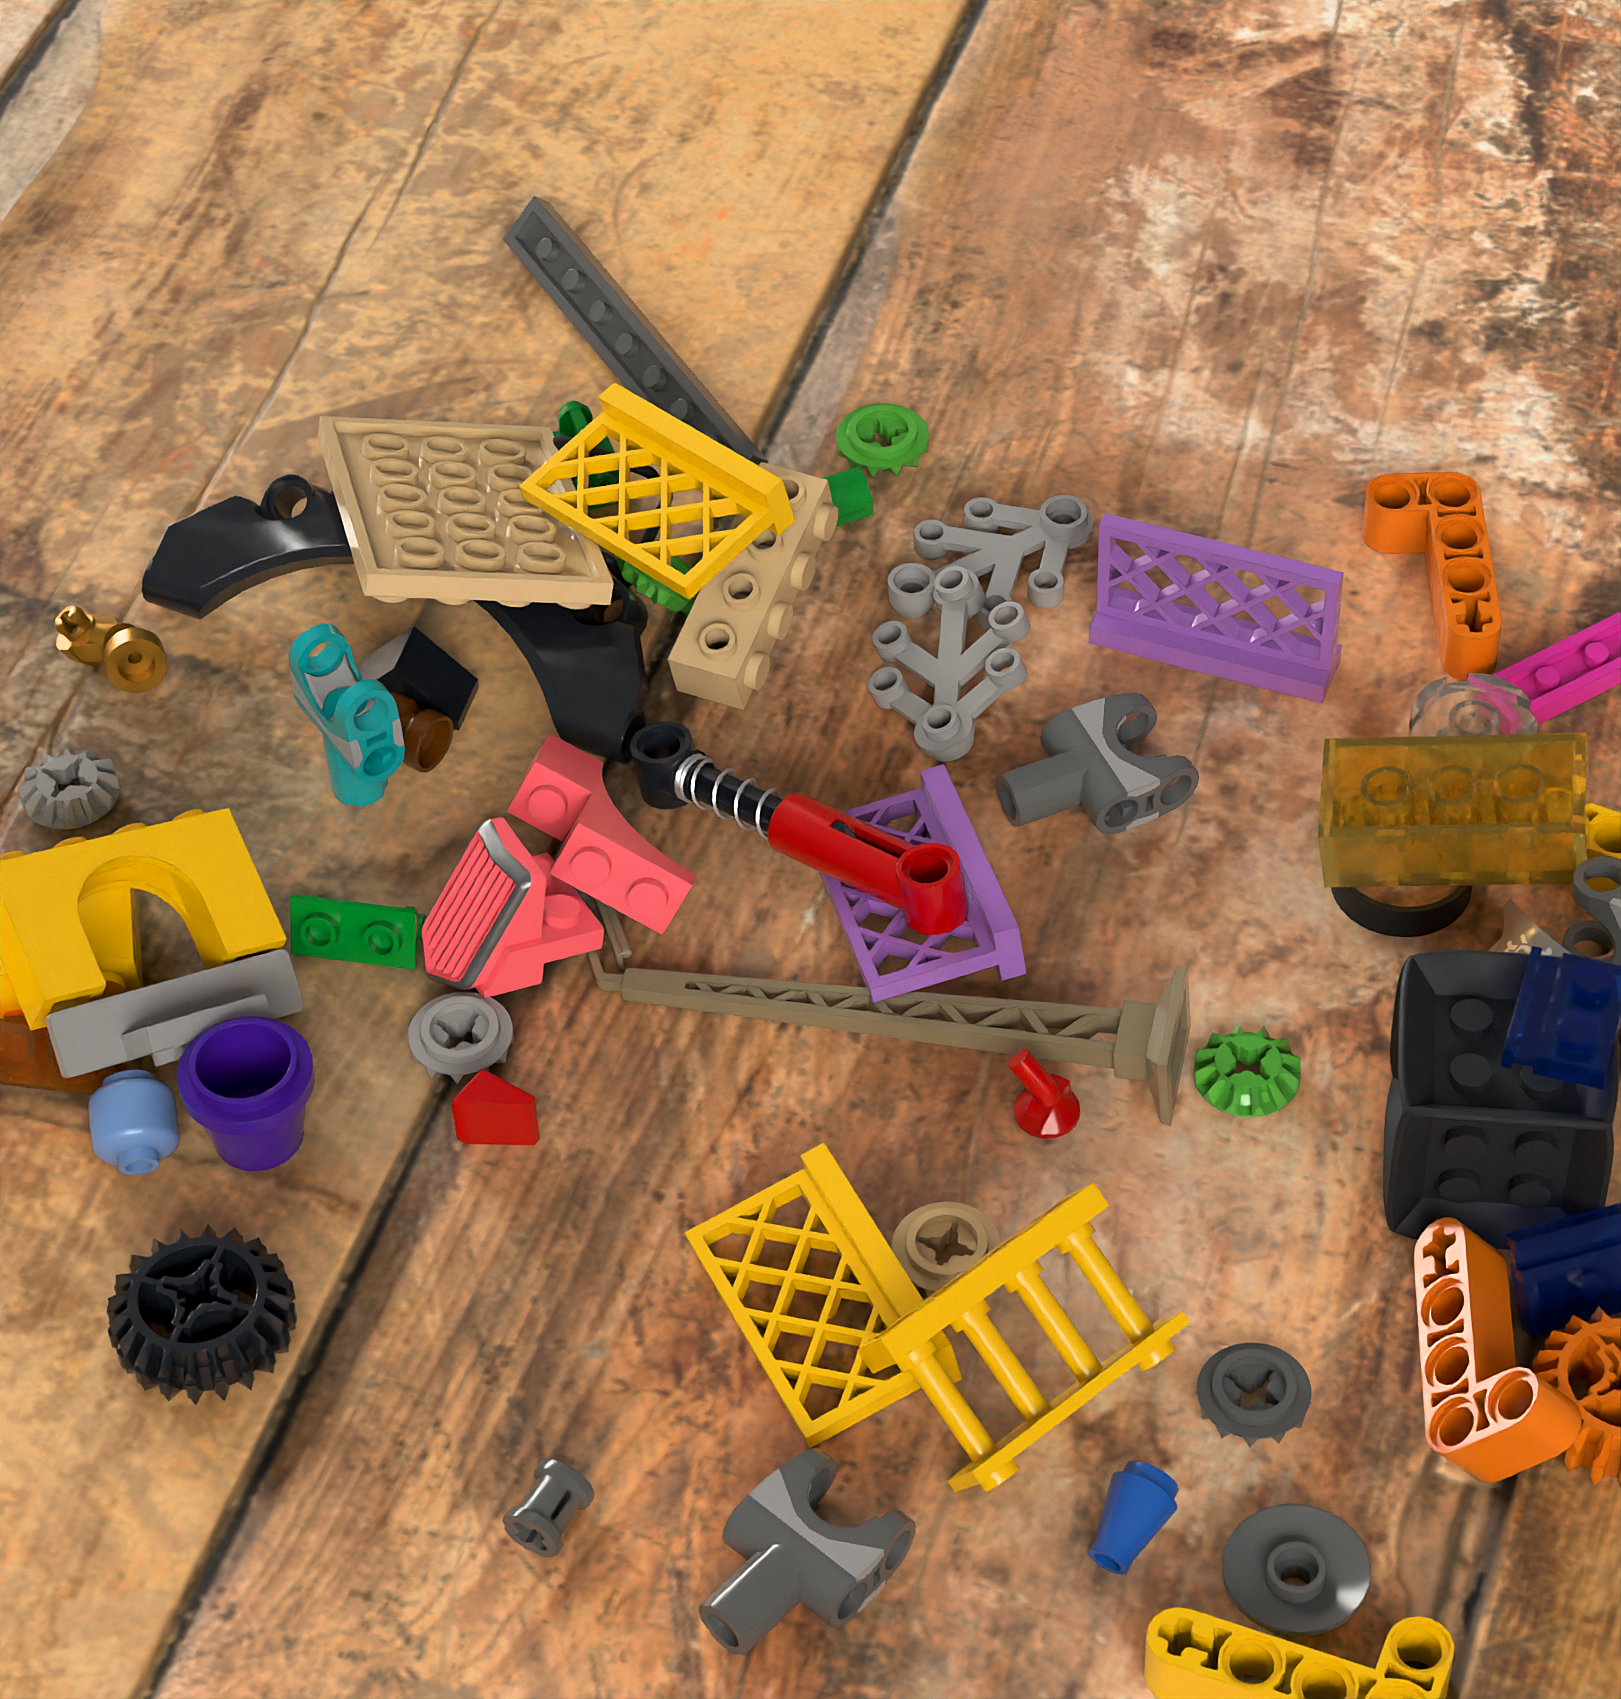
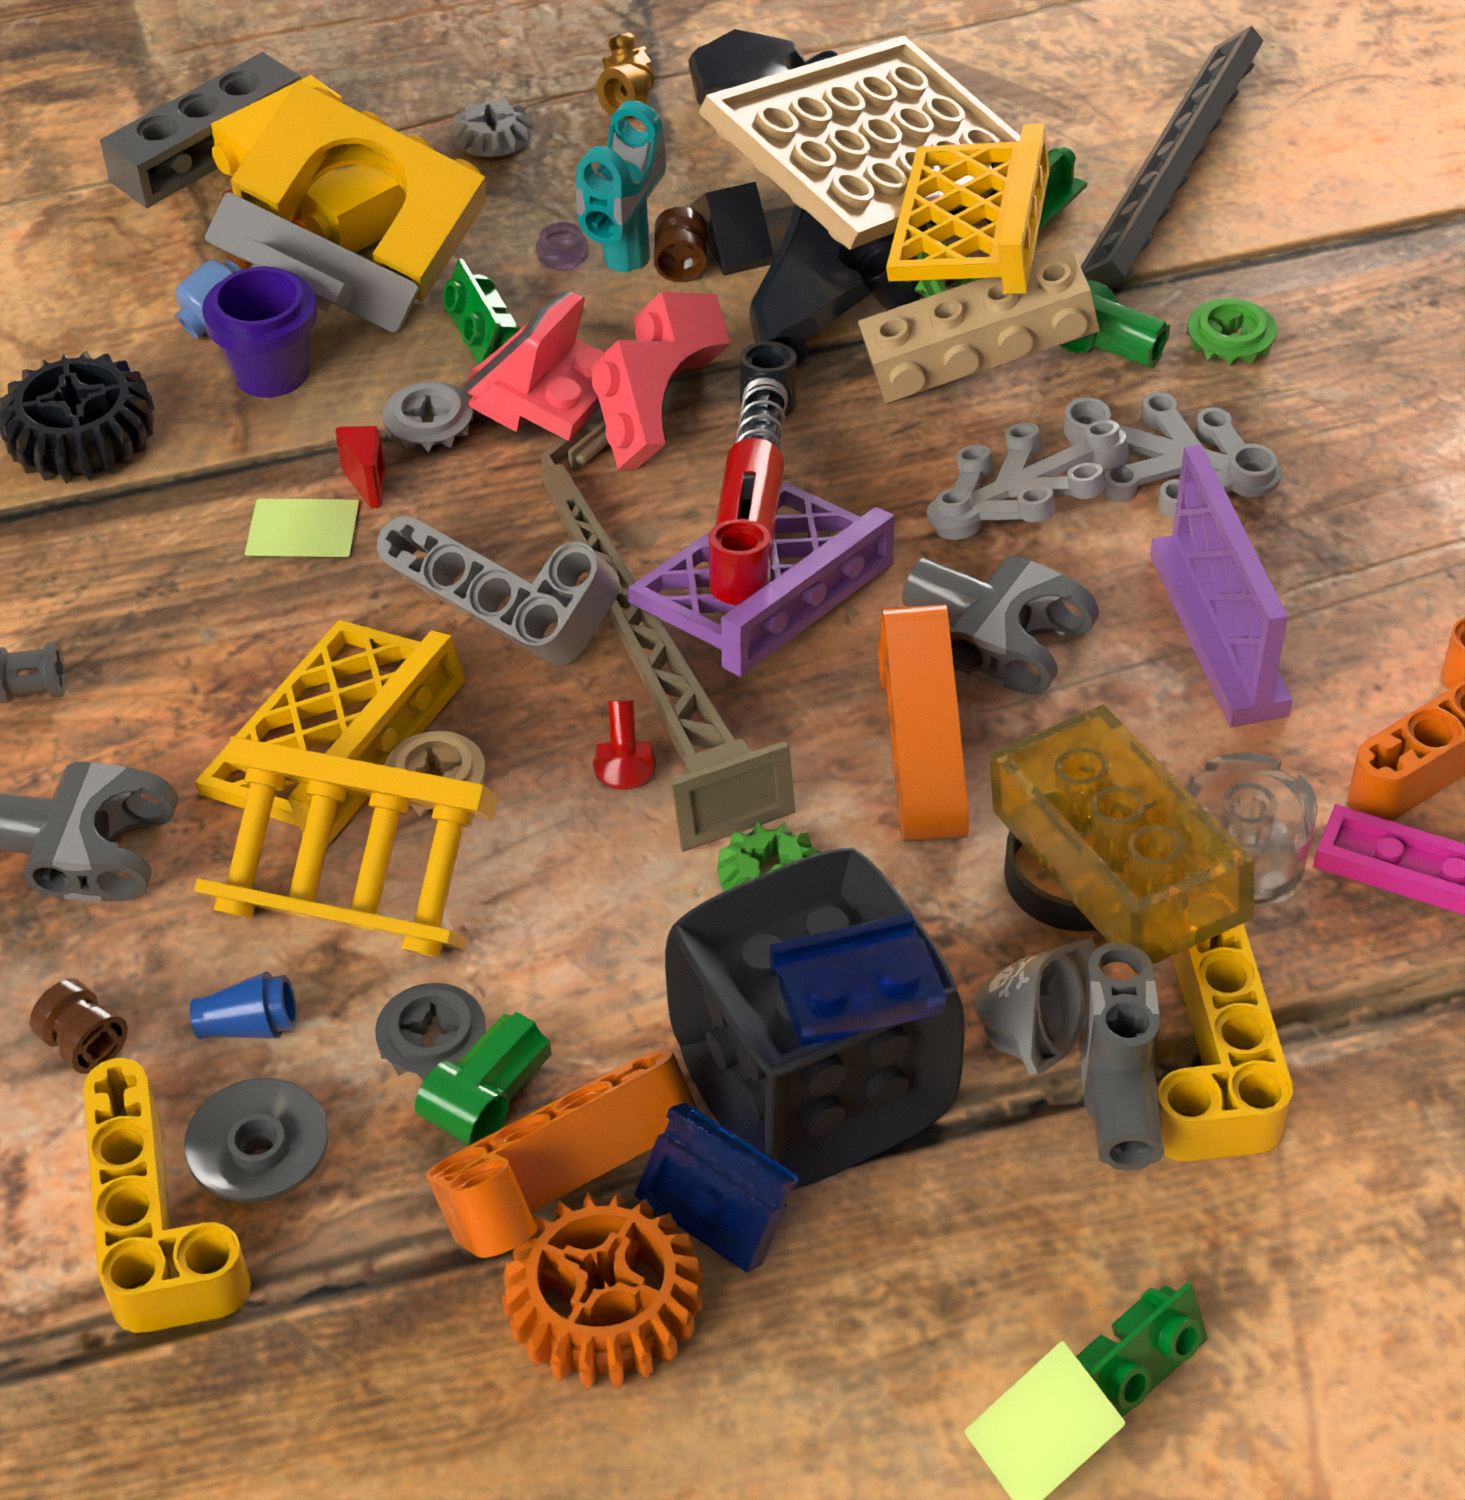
camera: 55 degrees right, 0 degrees up
(314, 821) = (562, 246): none -> plate
(514, 1210) = (302, 527): none -> yellowish green sticker
(757, 1085) = (486, 584): none -> light grey beam
(1058, 1652) = (74, 1022): none -> reddish brown wheel
(1191, 872) = (923, 722): none -> orange beam
(1350, 1389) = (474, 1095): none -> green piece

